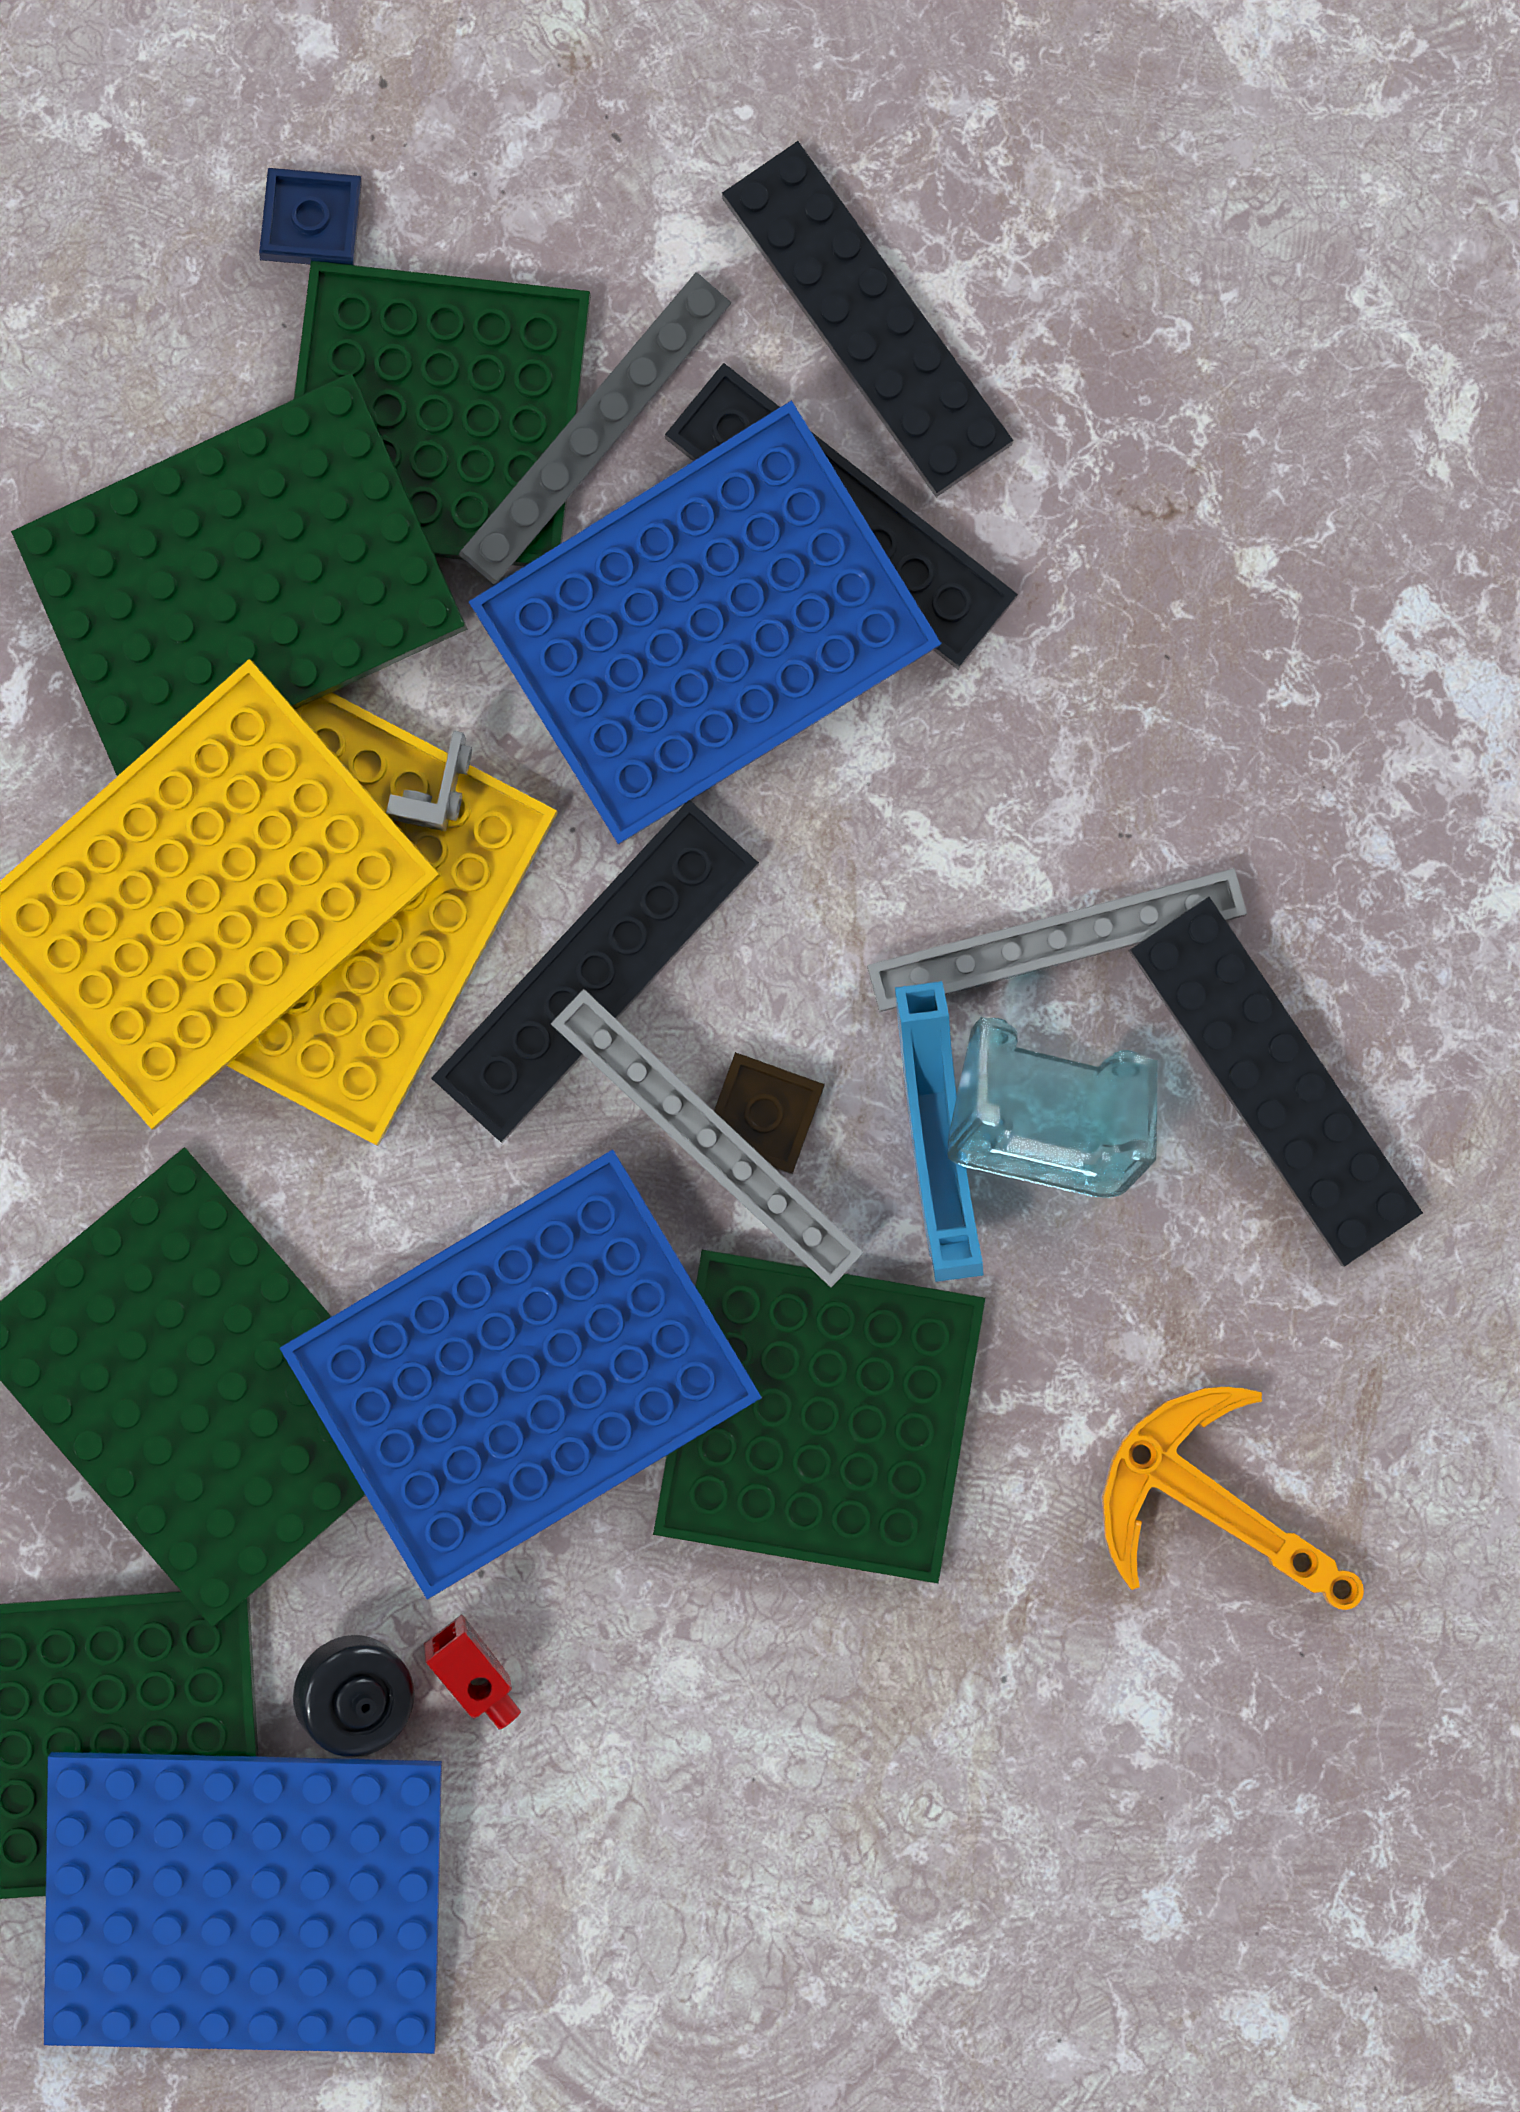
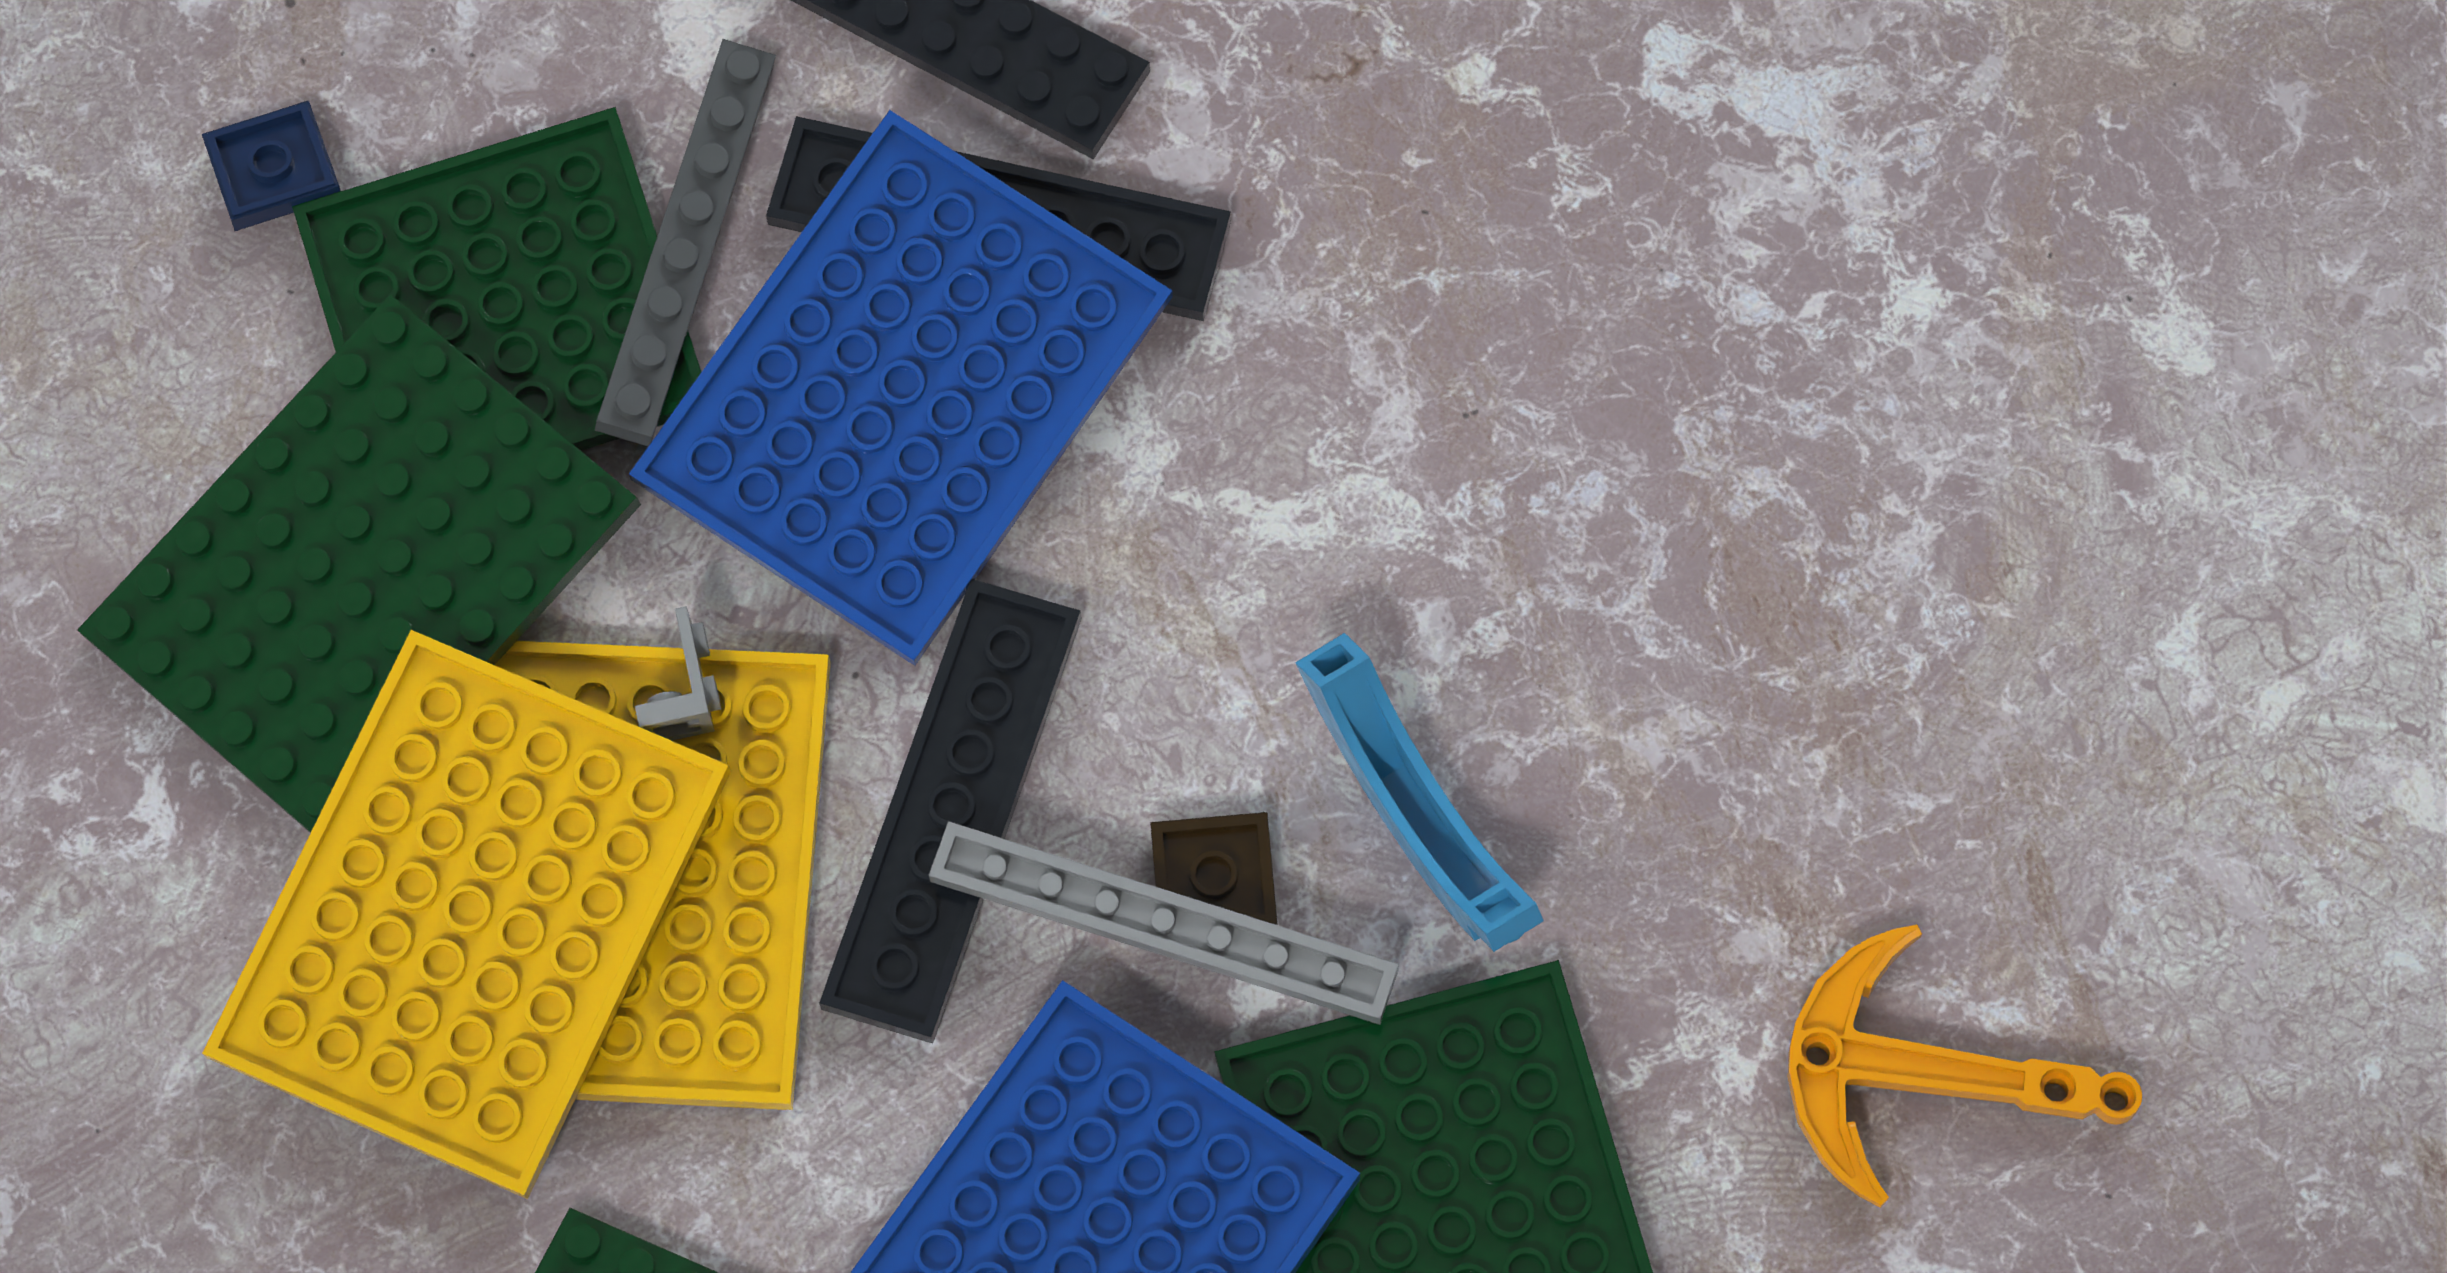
camera: 20 degrees left, 15 degrees down
(1053, 939) = (1458, 541): light grey plate -> none
(1053, 1115) = (1538, 733): clear light blue windscreen -> none
(1275, 1081) = (1764, 589): black plate -> none

